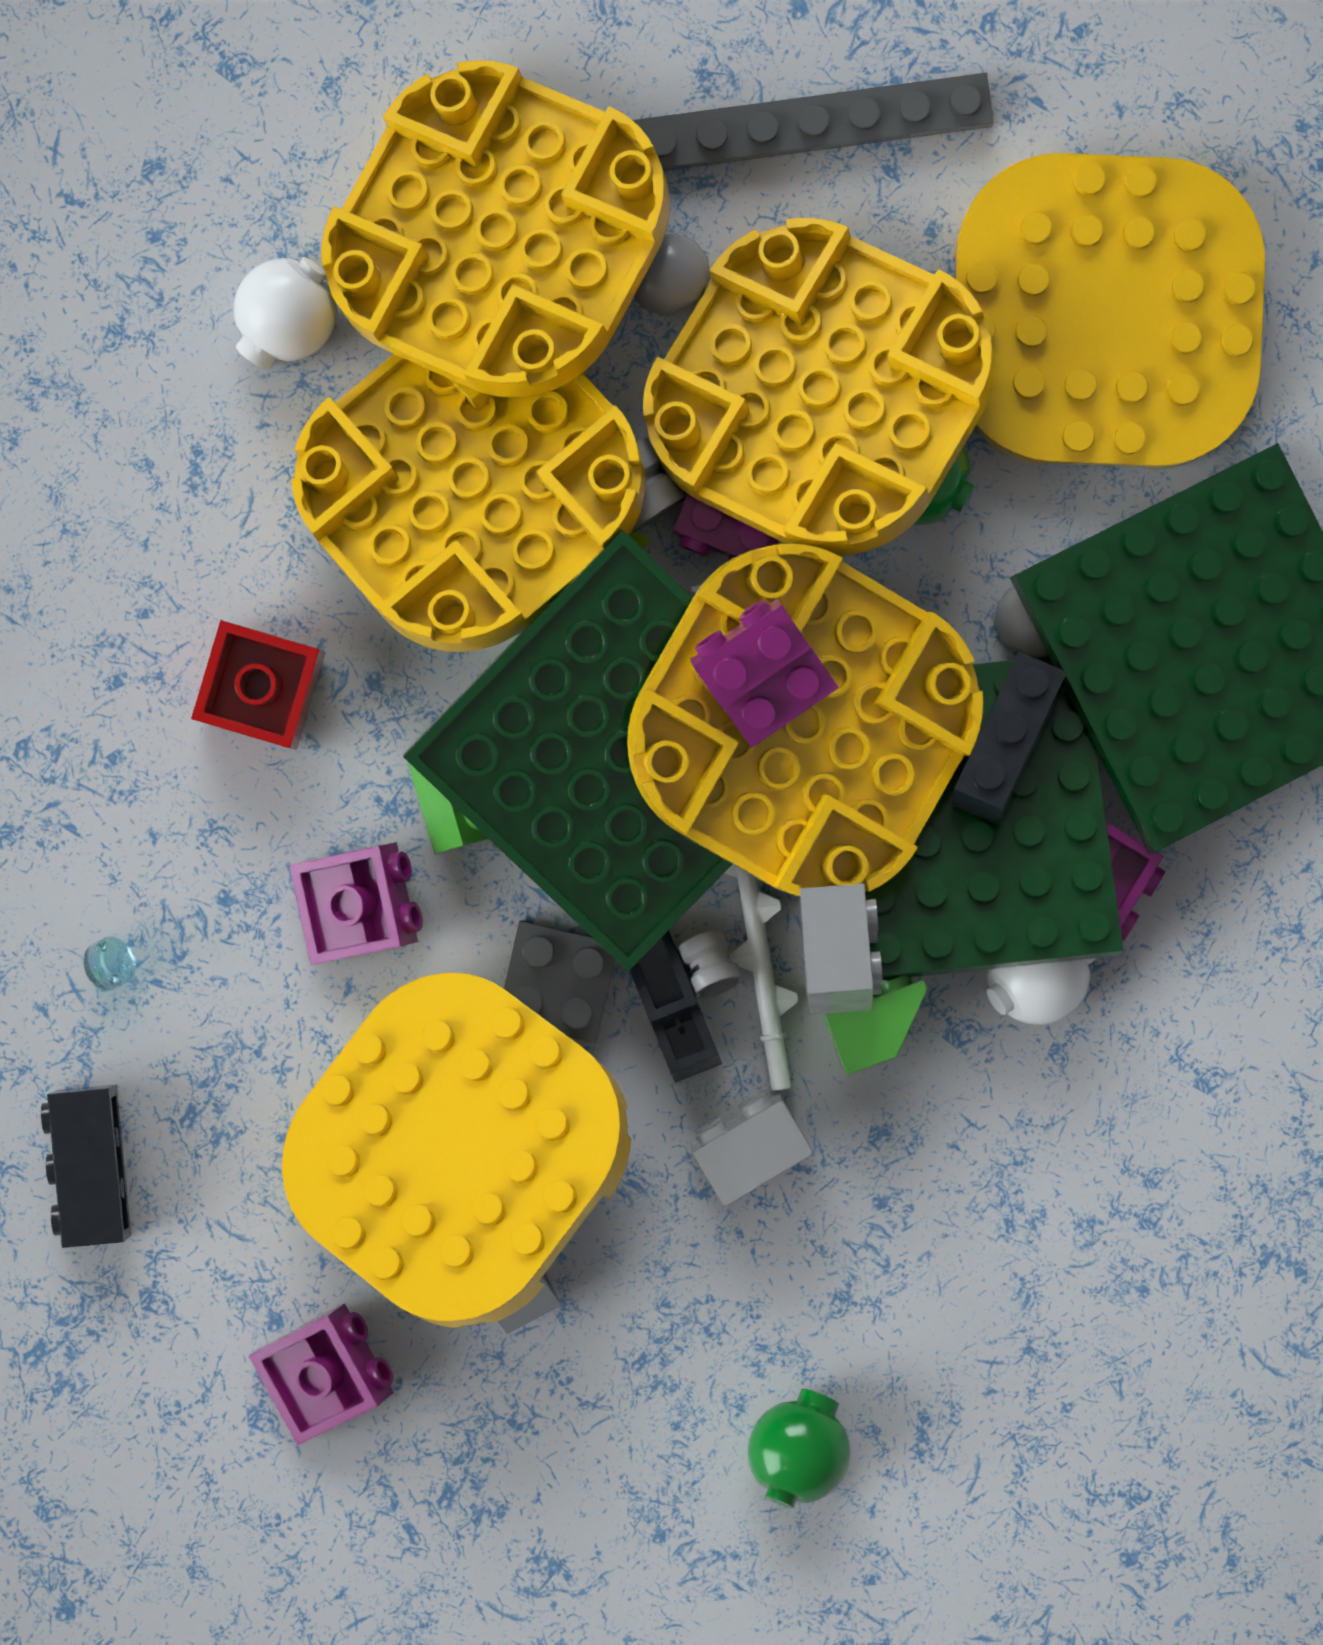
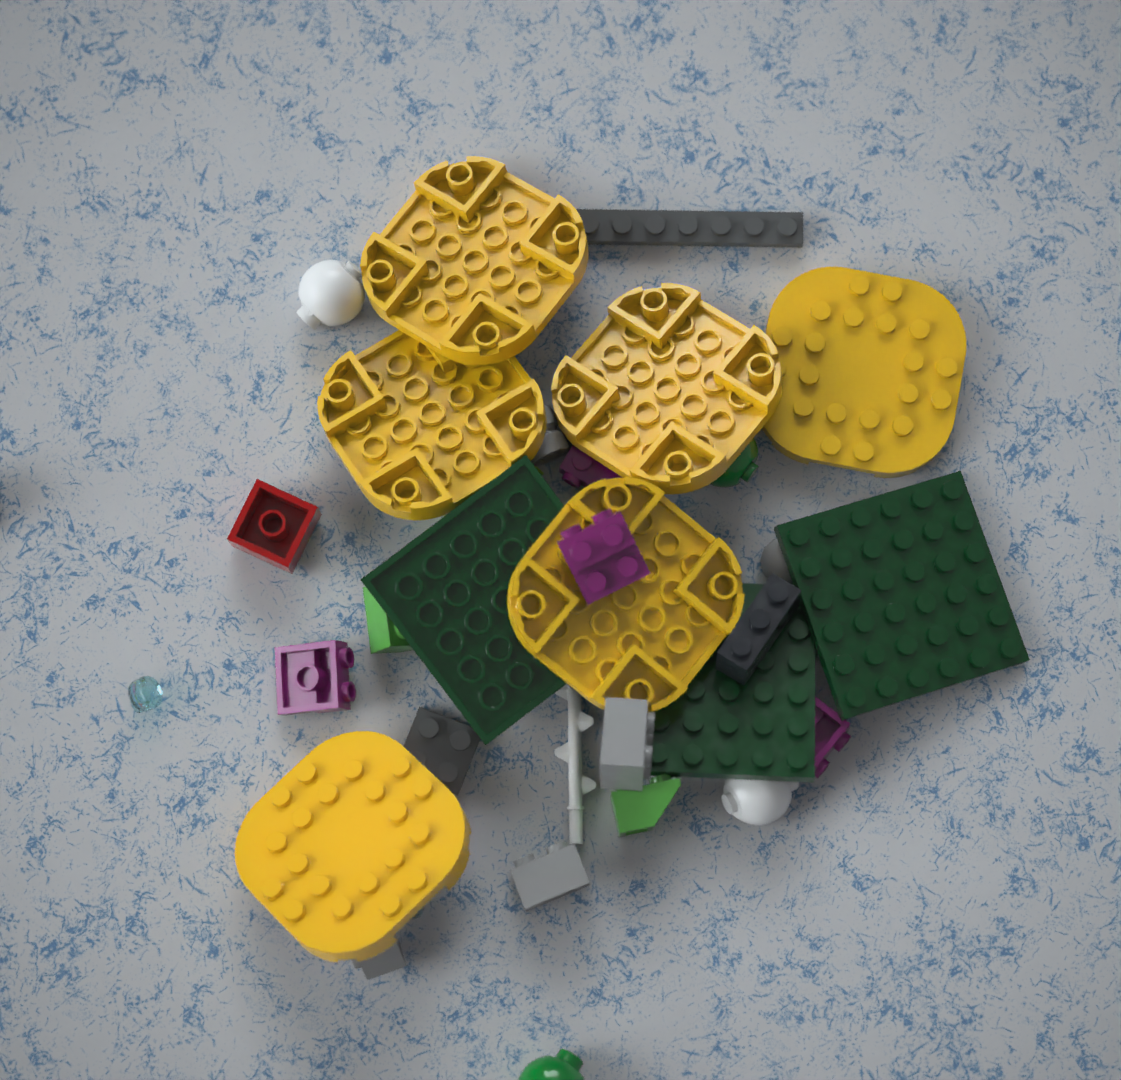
camera: 10 degrees right, 10 degrees down
(86, 1166) = (106, 825): black brick -> none
(323, 1373) = (239, 989): magenta plate -> none
(674, 277) = (583, 309): light grey hair -> none
(674, 1011) = (512, 779): black slope -> none
(709, 962) = (540, 752): light grey wheel -> none

